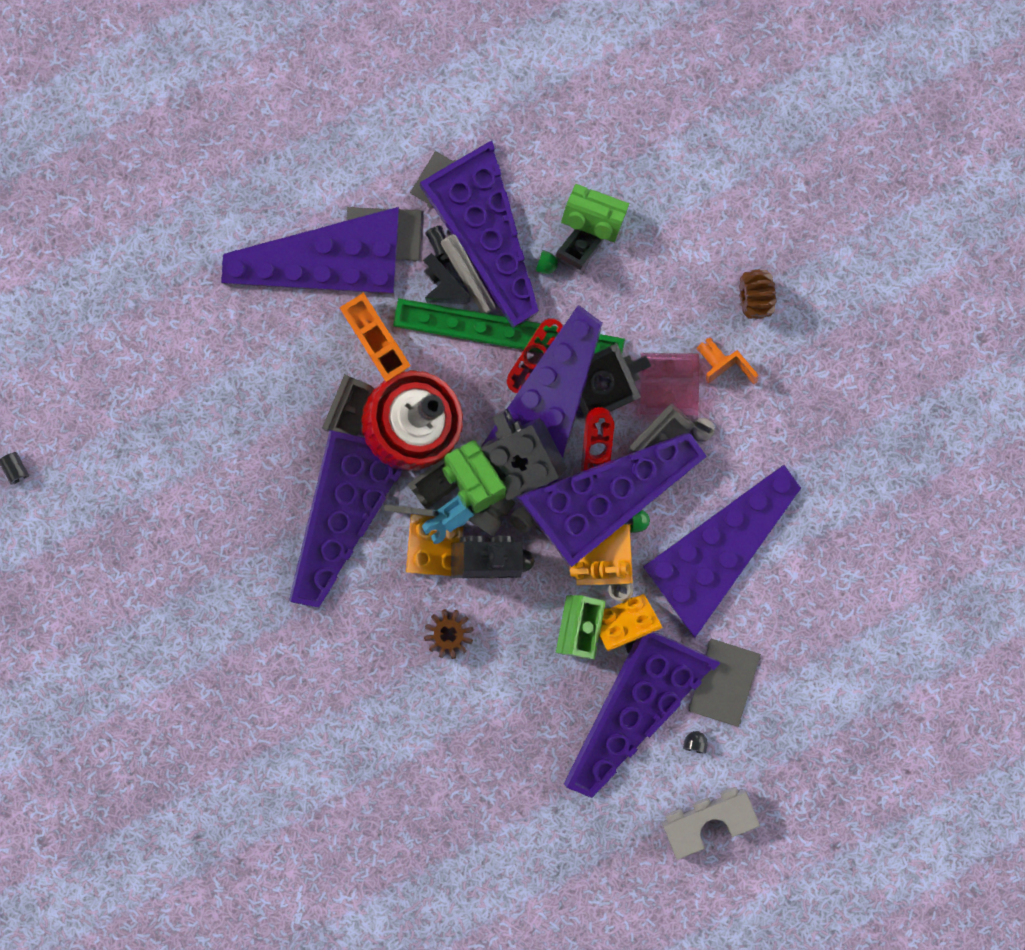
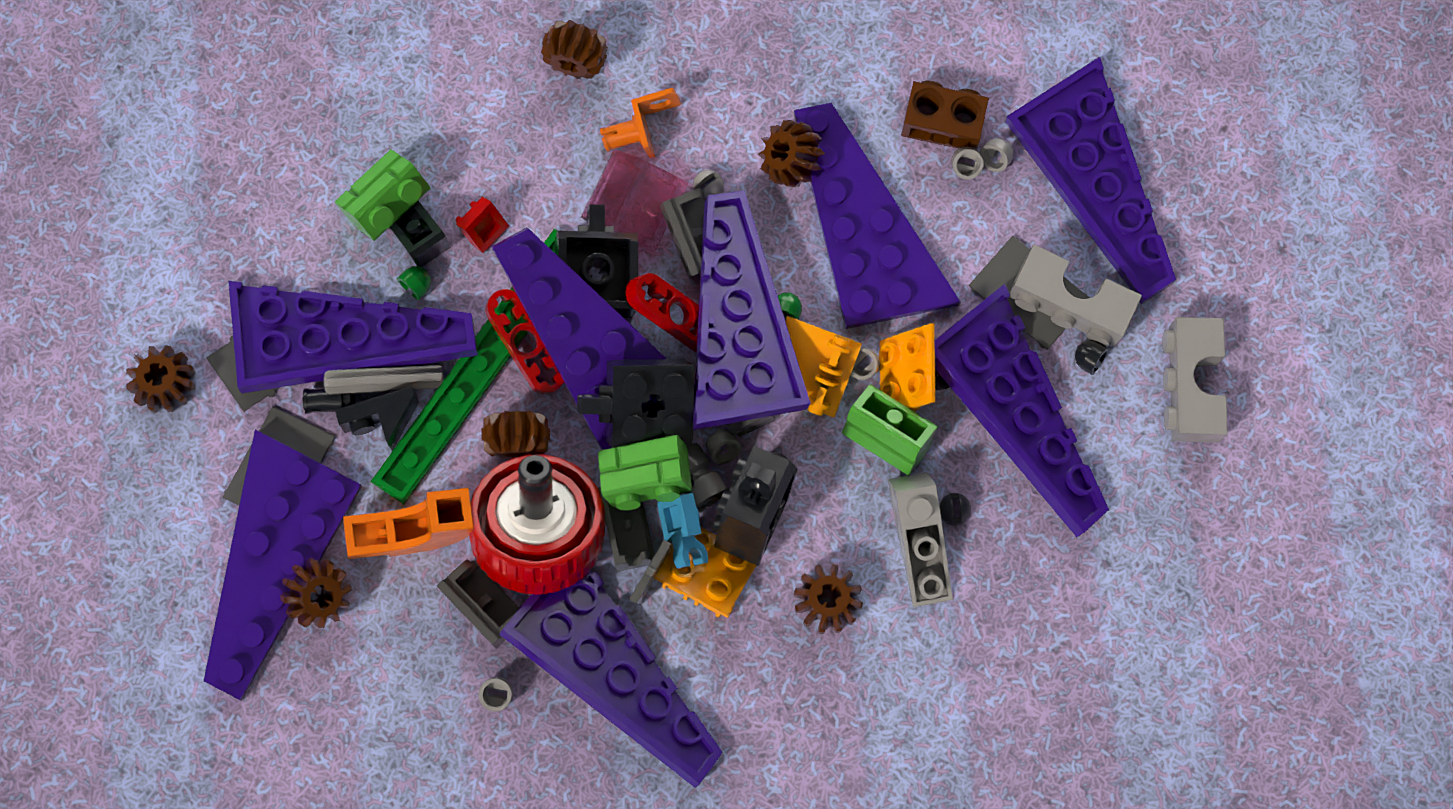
camera: 70 degrees left, 10 degrees down
(289, 446) = (495, 702): none -> light grey hinge
(296, 297) = (327, 602): none -> reddish brown gear
(404, 138) = (172, 385): none -> reddish brown gear
(468, 379) = (515, 434): none -> reddish brown gear
(517, 678) = (921, 538): none -> light grey slope
(545, 687) = (946, 509): none -> black hinge
(605, 288) = (482, 224): none -> red tile
(729, 689) = (1042, 289): none -> light grey arch
(748, 476) = (791, 153): none -> reddish brown gear
(793, 601) = (966, 170): none -> light grey hinge
(818, 573) = (943, 126): none -> reddish brown brick
(820, 622) = (991, 148): none -> light grey hinge
(837, 687) = (1090, 163): none -> dark purple wing

